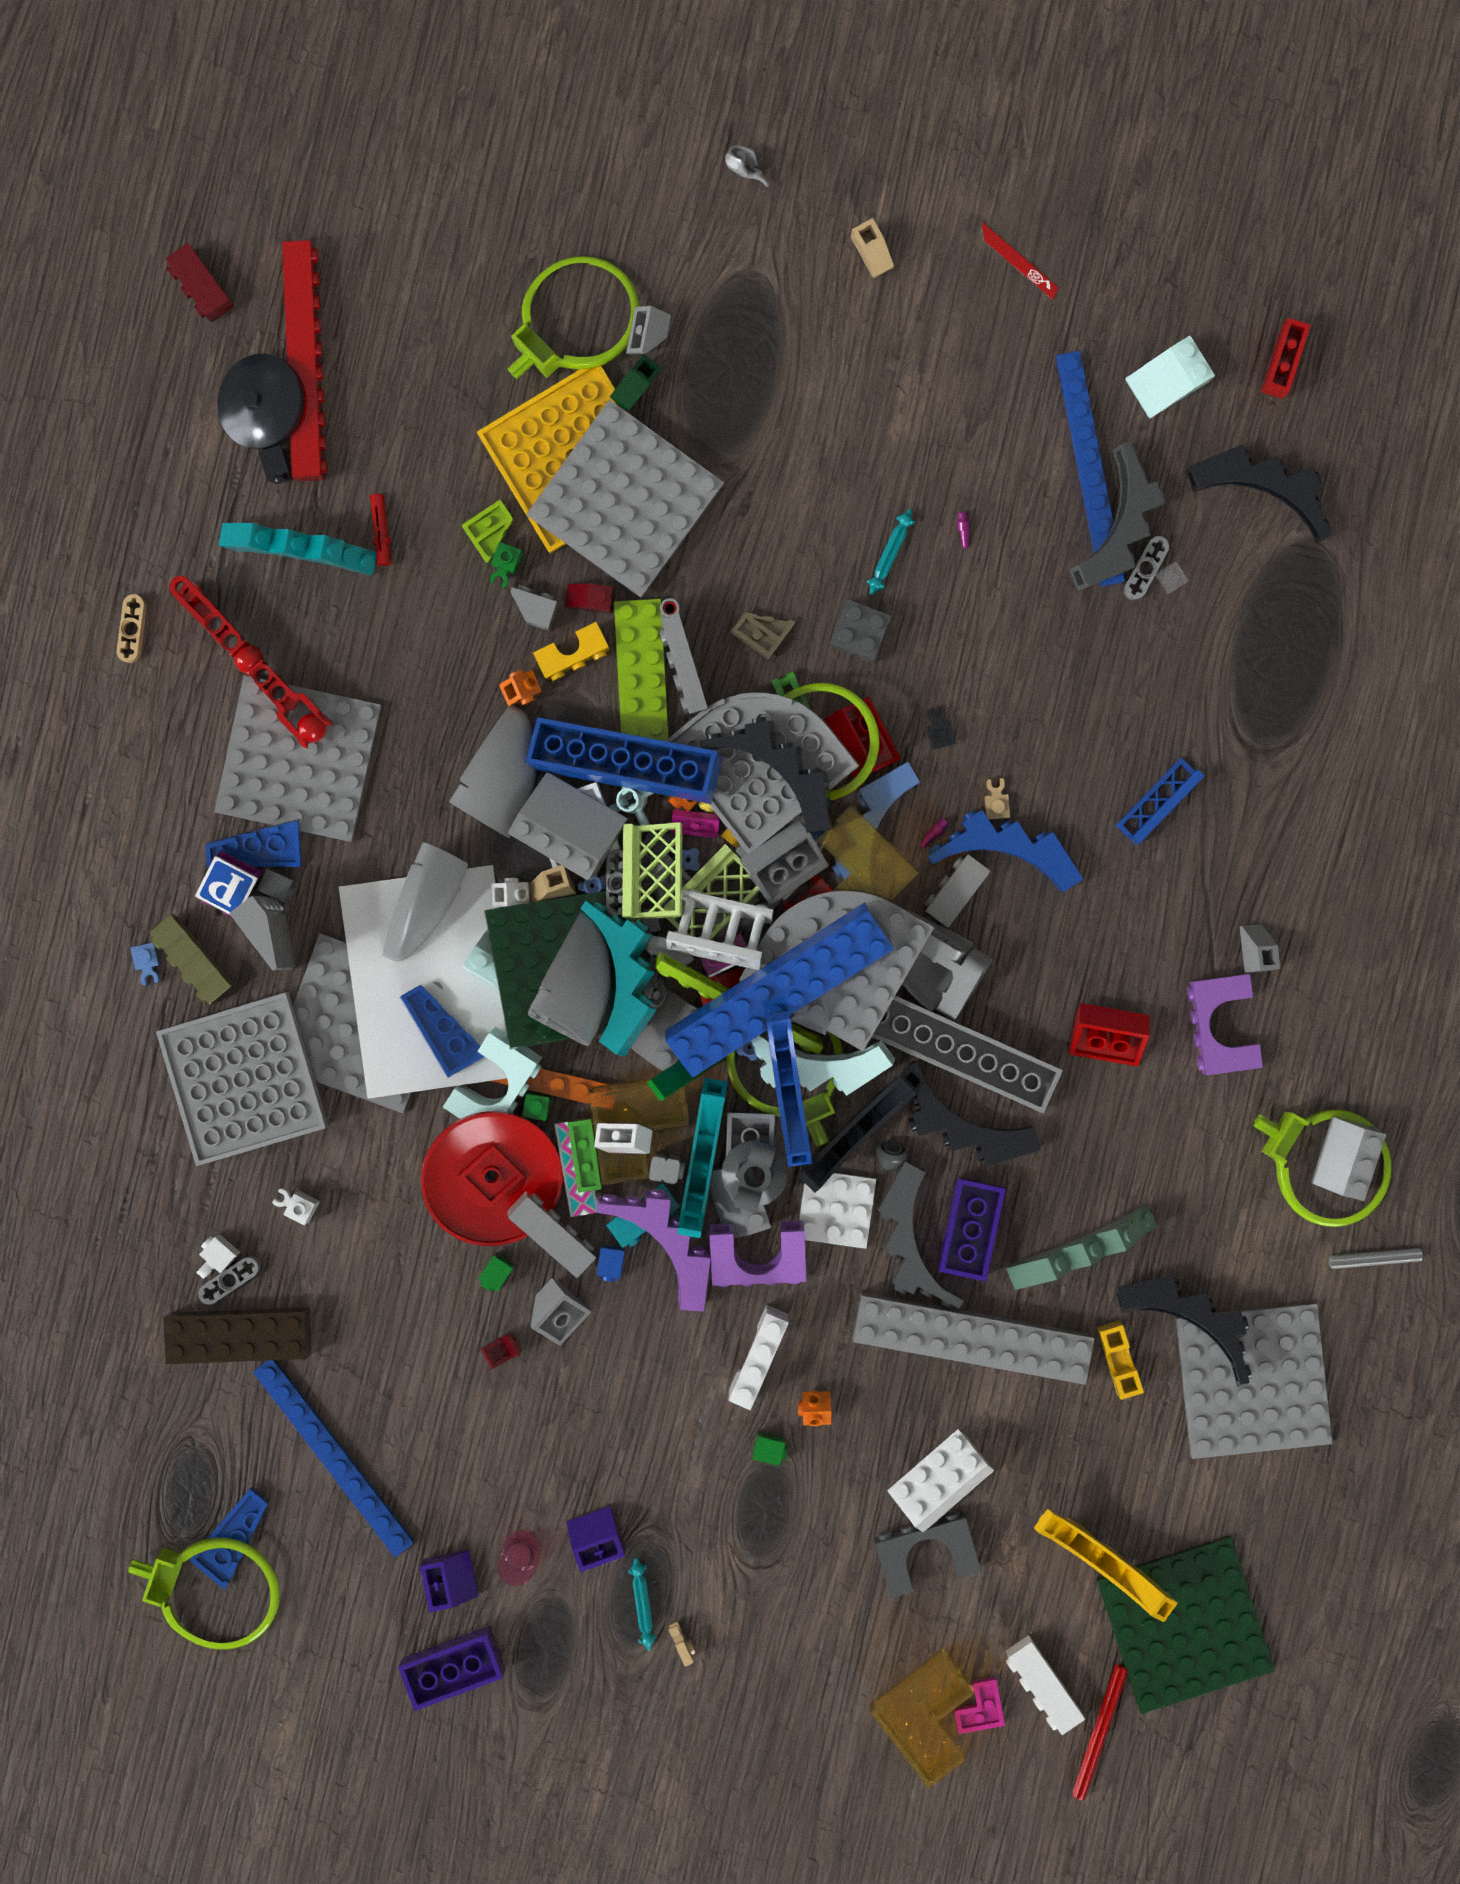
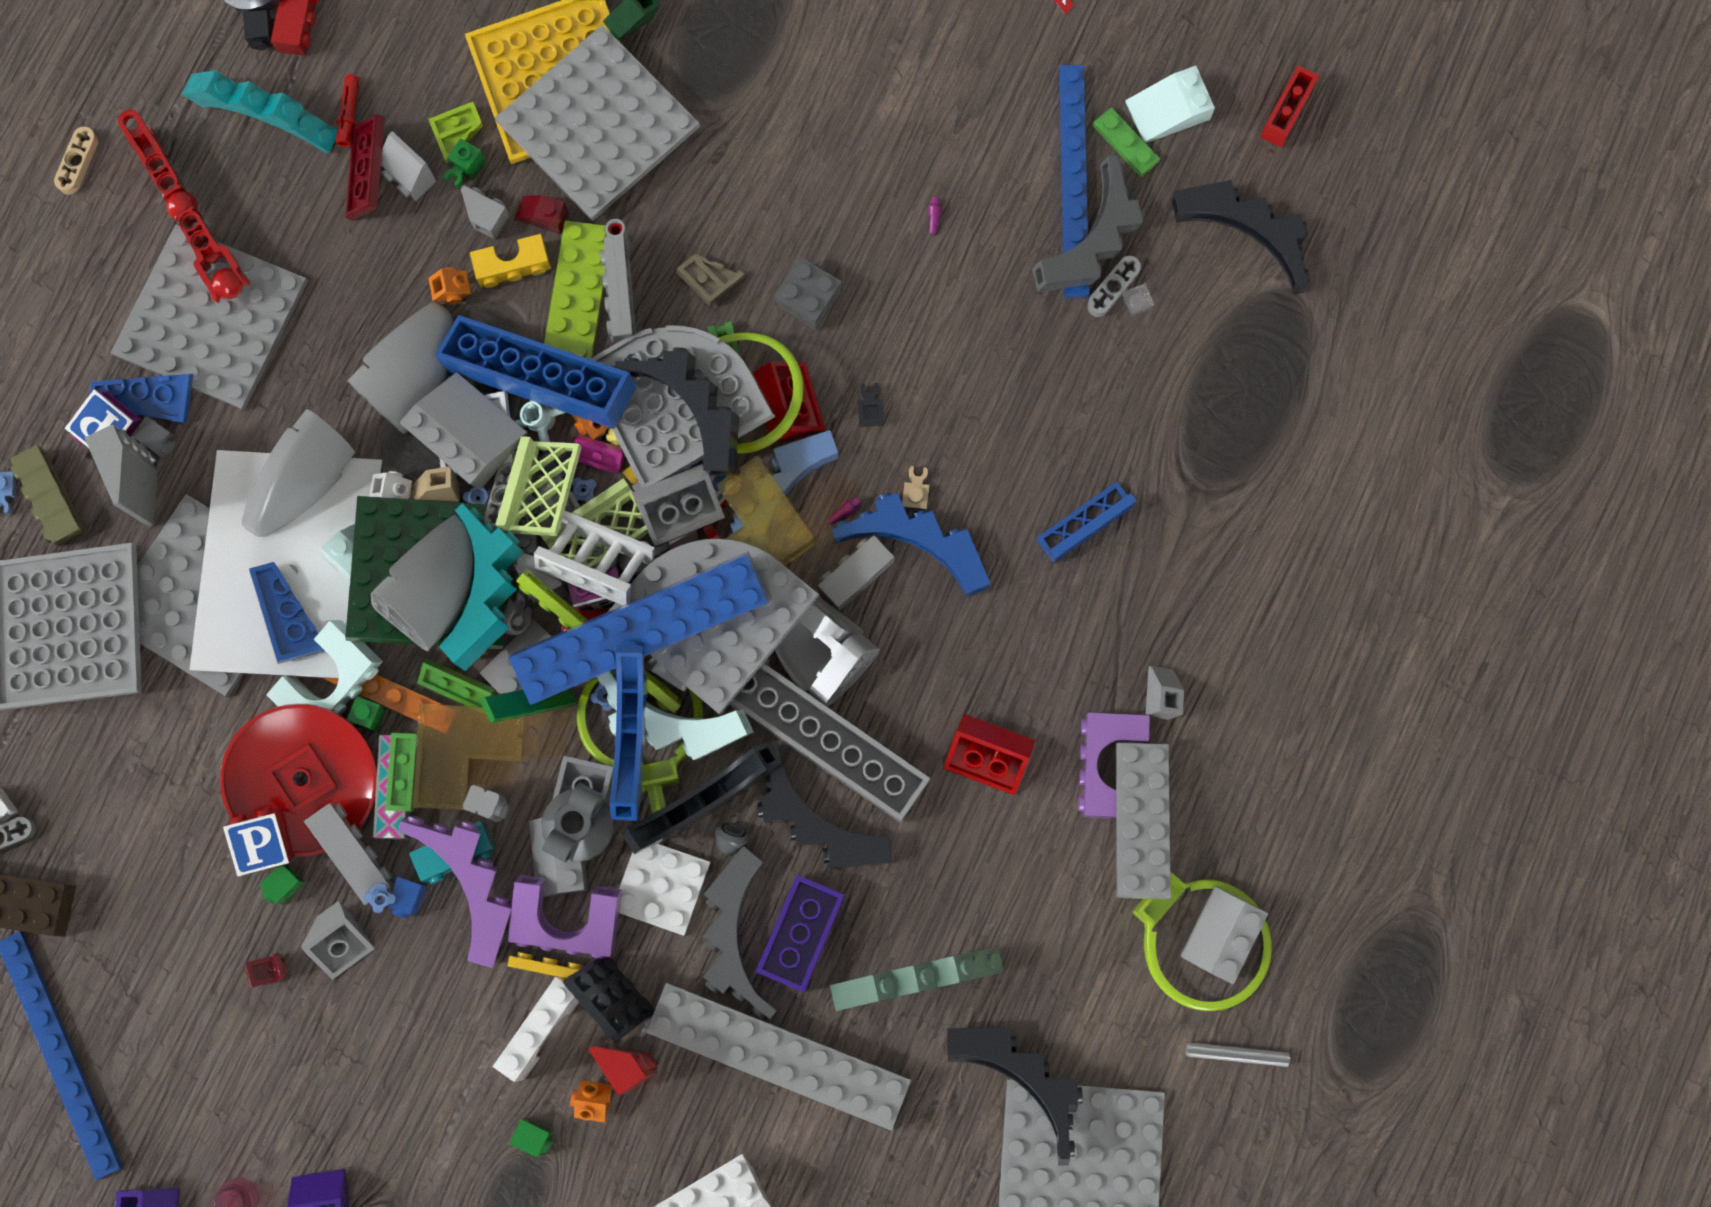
camera: 15 degrees right, 10 degrees down
(299, 1206) = (90, 772): white brick -> none
(413, 586) = (364, 167): none -> dark red tile
(451, 579) = (405, 168): none -> light grey slope
(469, 1241) = (258, 841): none -> piece
(585, 1266) = (379, 890): none -> medium blue plate
(610, 1064) = (453, 684): none -> bright green plate
(623, 1138) = (444, 758): white brick -> none
(702, 1157) = (529, 798): teal arch -> none
(752, 1300) = (547, 966): none -> yellow plate
(815, 1319) = (609, 997): none -> black plate
(843, 1376) = (624, 1066): none -> red slope
(890, 551) = (855, 223): teal wheel -> none
(1119, 1360) = (935, 1112): yellow arch -> none
(1133, 421) = (1126, 142): none -> bright green plate
(1260, 1071) = (1142, 821): none -> light grey plate

